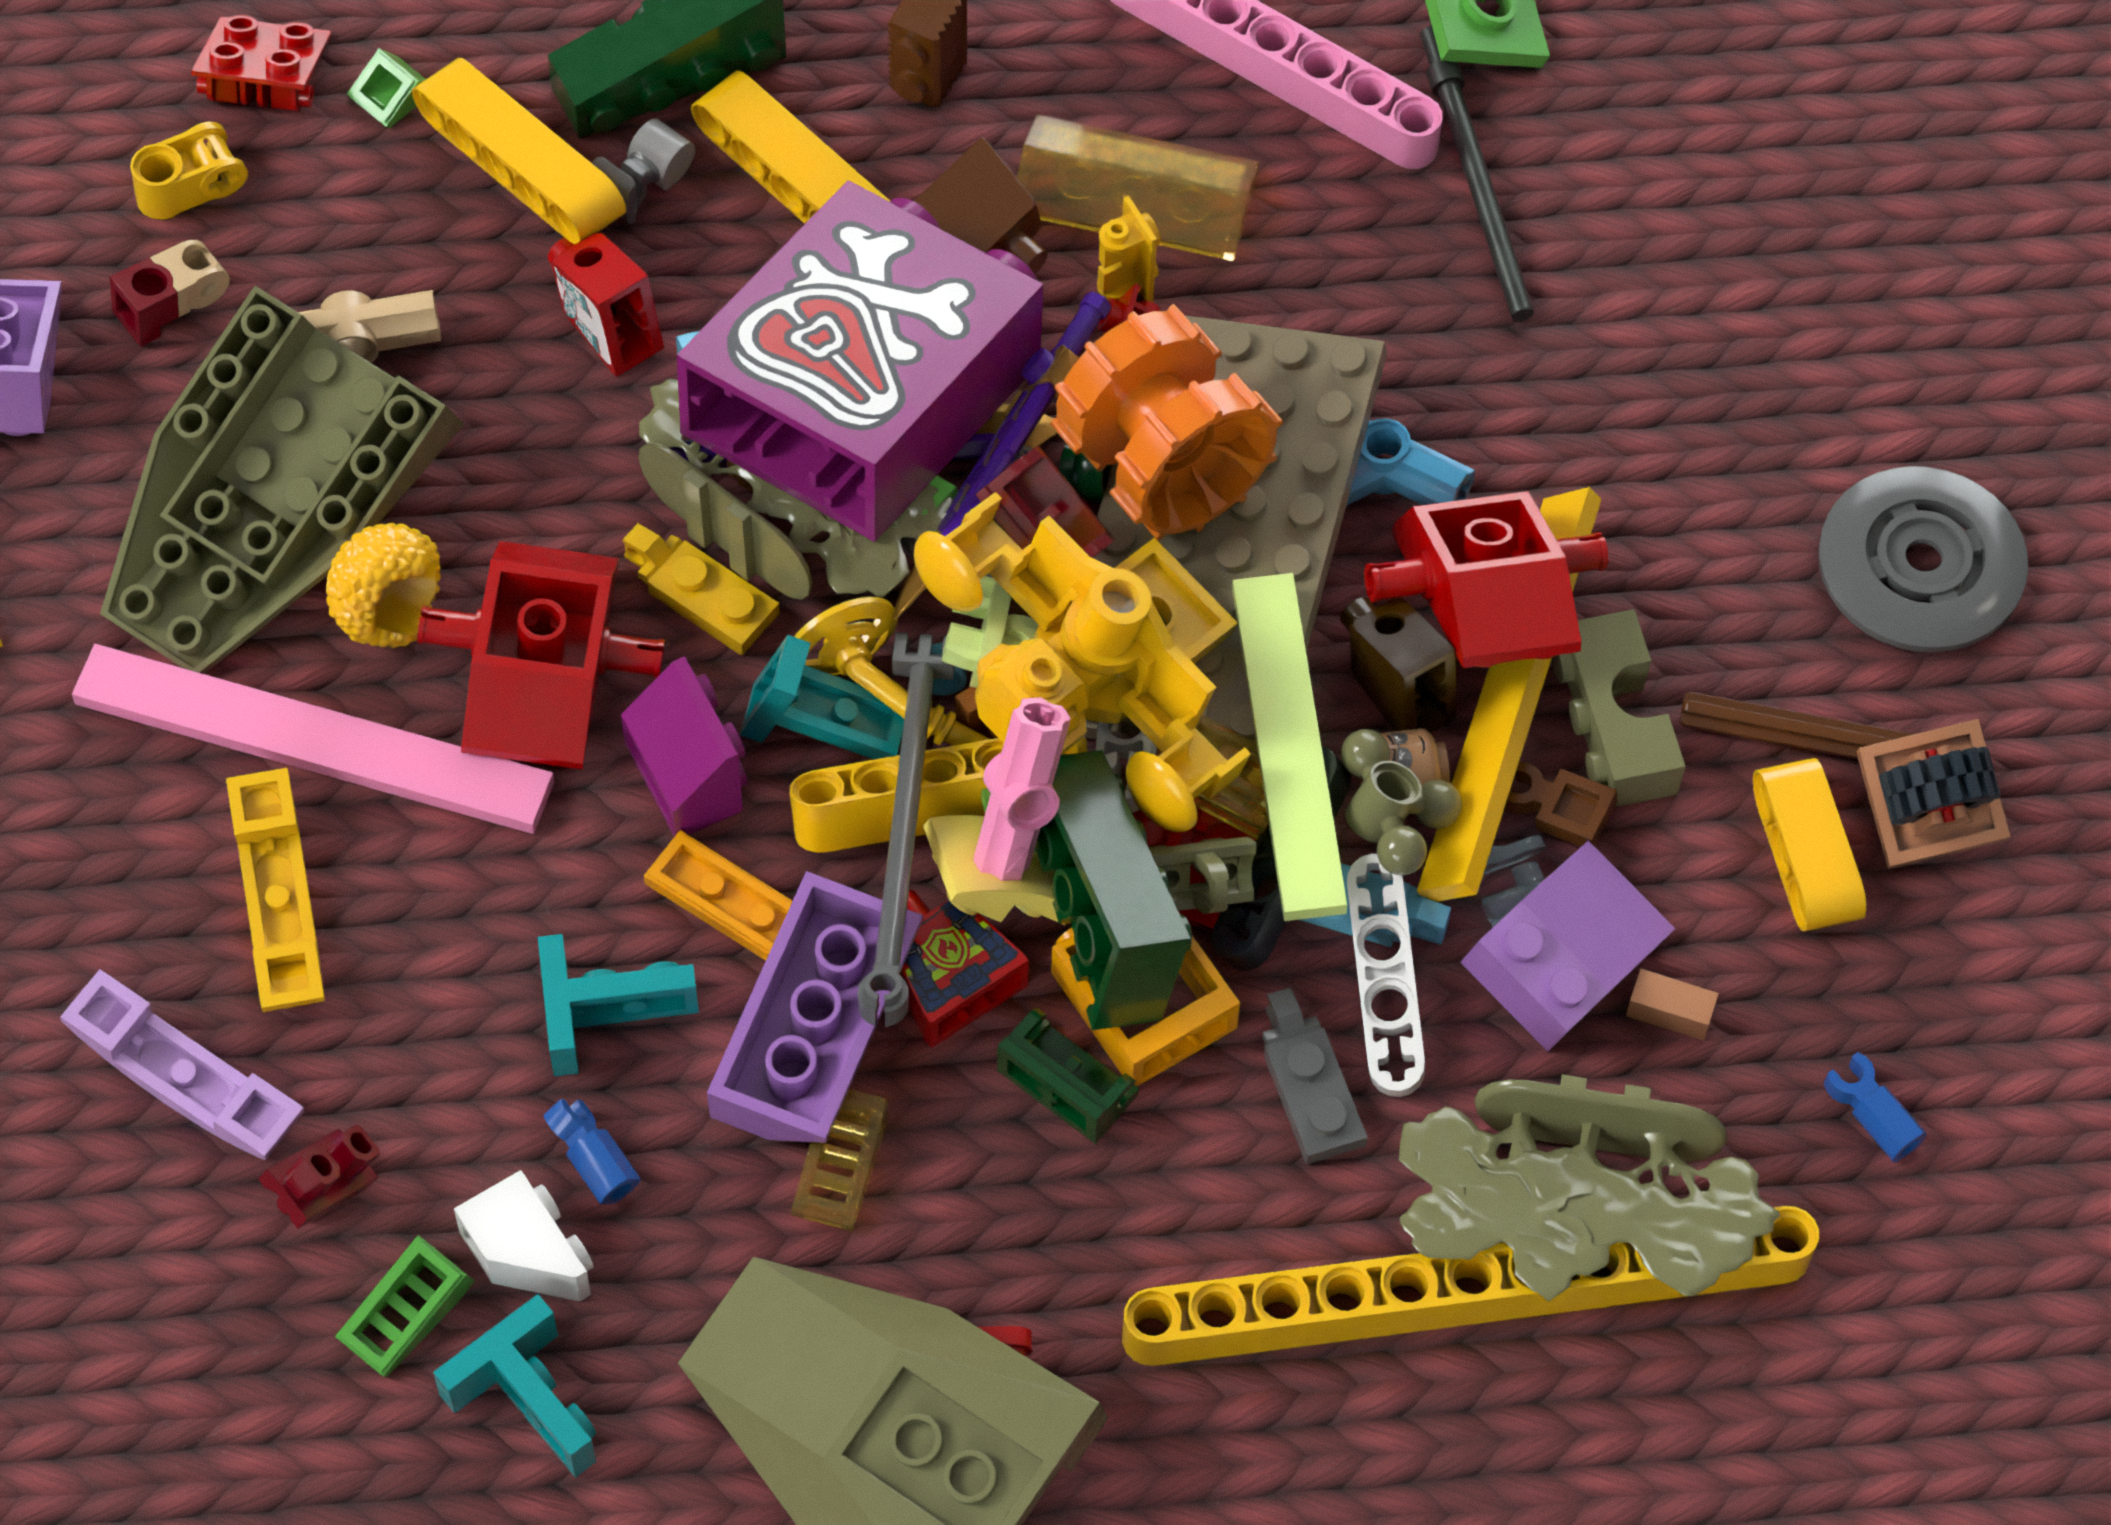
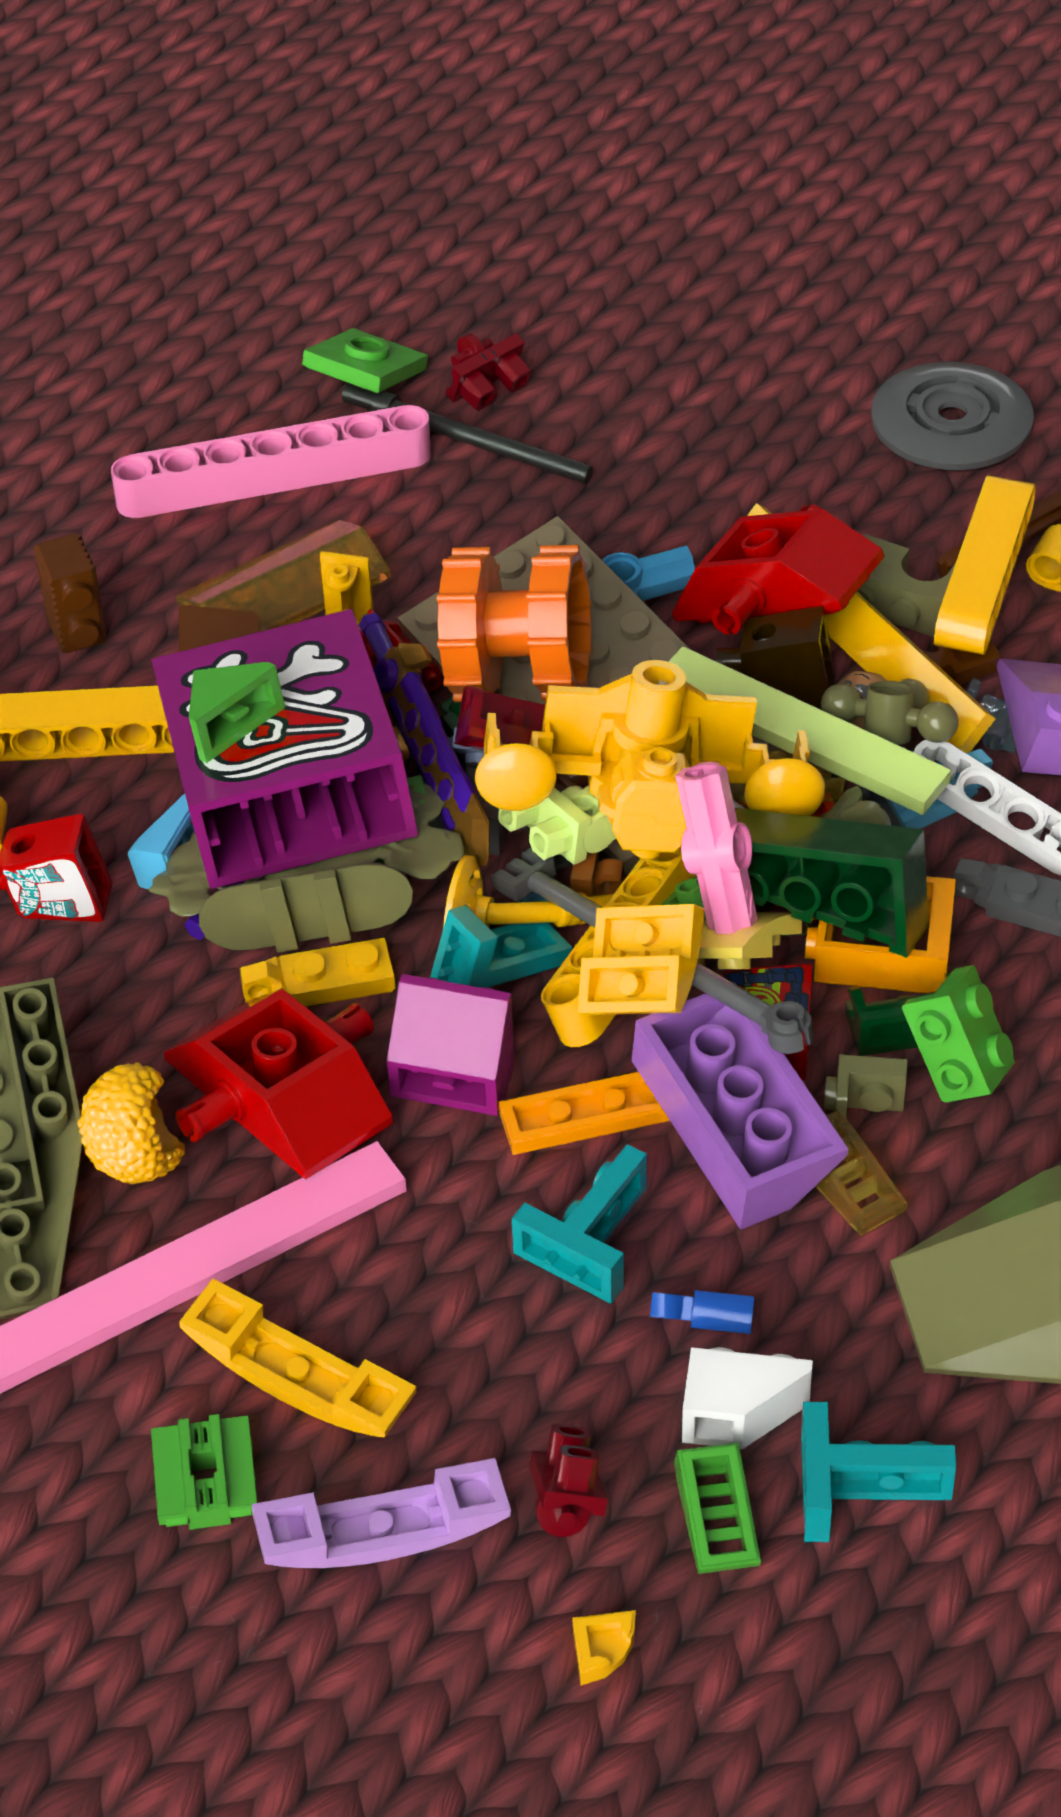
camera: 45 degrees left, 15 degrees down
(120, 879) = (197, 1447): none -> bright green piece
(210, 1317) = (602, 1643): none -> yellow tile
(804, 291) = (231, 704): none -> bright green slope
(871, 828) = (641, 960): none -> yellow slope
(944, 1098) = (867, 1084): none -> olive bracket
(1054, 1139) = (960, 1037): none -> bright green bracket
(1547, 117) = (483, 363): none -> dark red hips
(1671, 741) = (985, 565): none -> yellow beam

